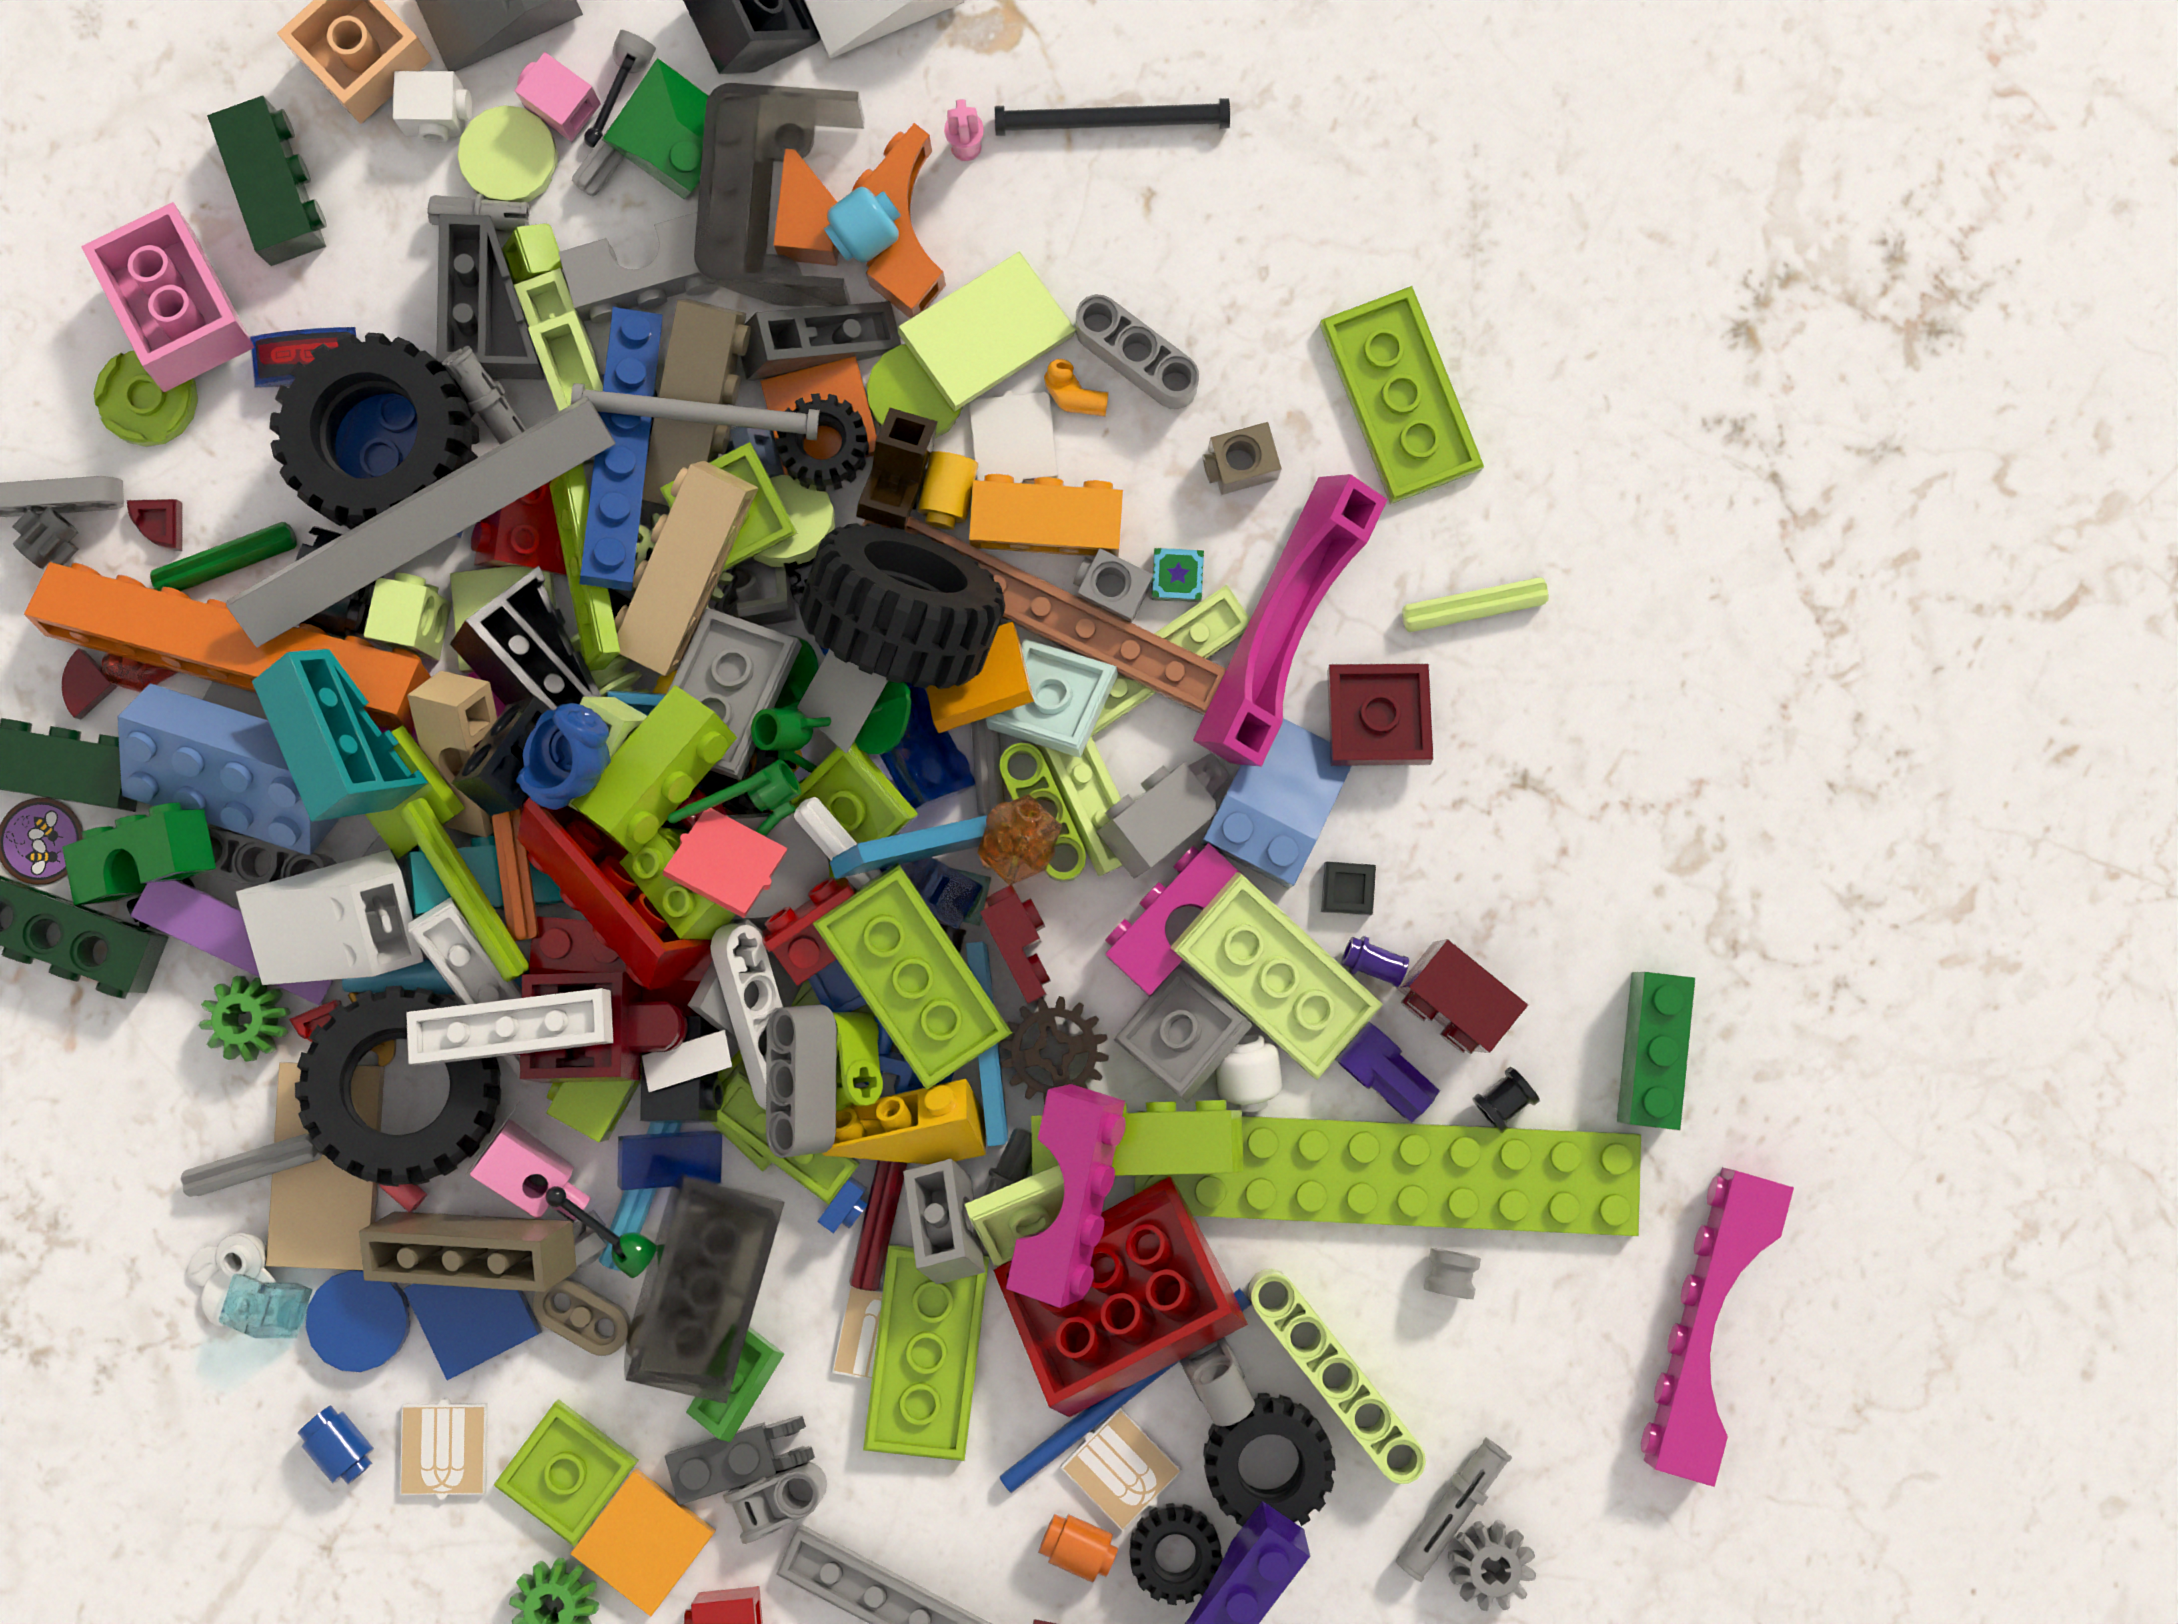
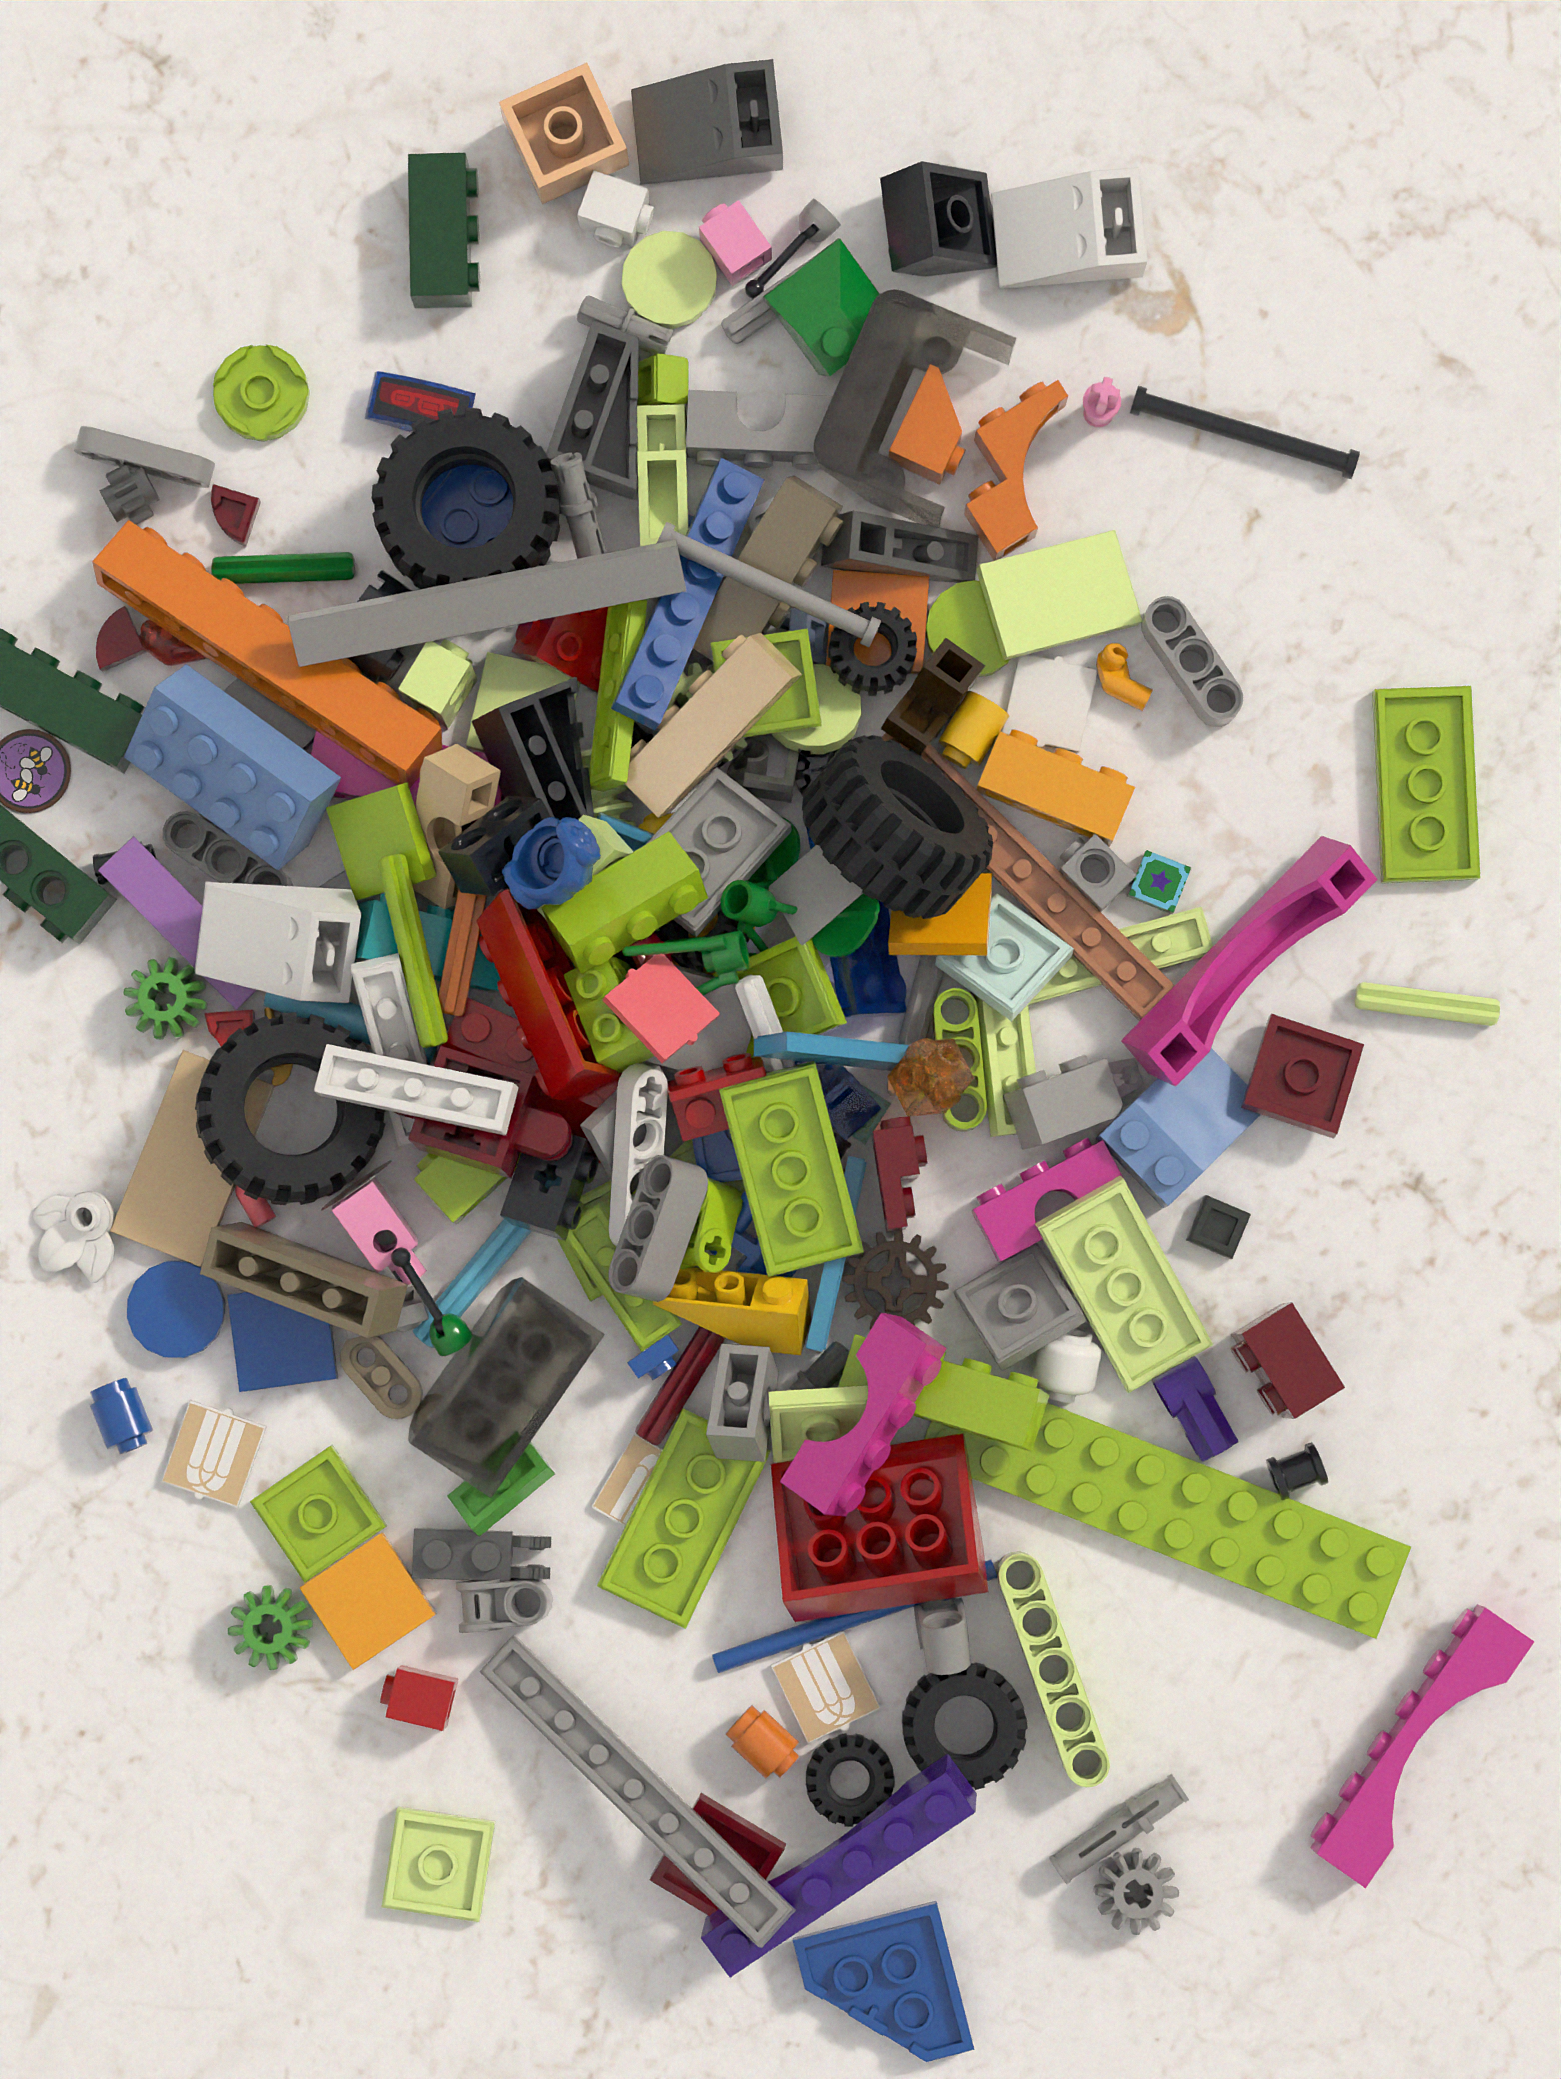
camera: 25 degrees right, 0 degrees up
(139, 851) = (153, 816): green arch -> none
(167, 297) = (317, 311): bright pink brick -> none
(249, 1165) = (128, 1134): light grey axle -> none
(265, 1308) = (98, 1267): clear light blue bracket -> none
(330, 740) = (341, 775): teal wedge -> none
(663, 1157) = (504, 1257): clear blue tile -> none
(687, 1061) = (561, 1175): white sticker -> none
(863, 224) = (978, 461): medium azure head -> none
(1254, 440) = (1273, 781): dark tan brick -> none
(1374, 961) = (1219, 1302): dark purple pin -> none
(1452, 1273) = (1191, 1613): light grey wheel -> none
(1656, 1050) = (1451, 1473): green brick -> none

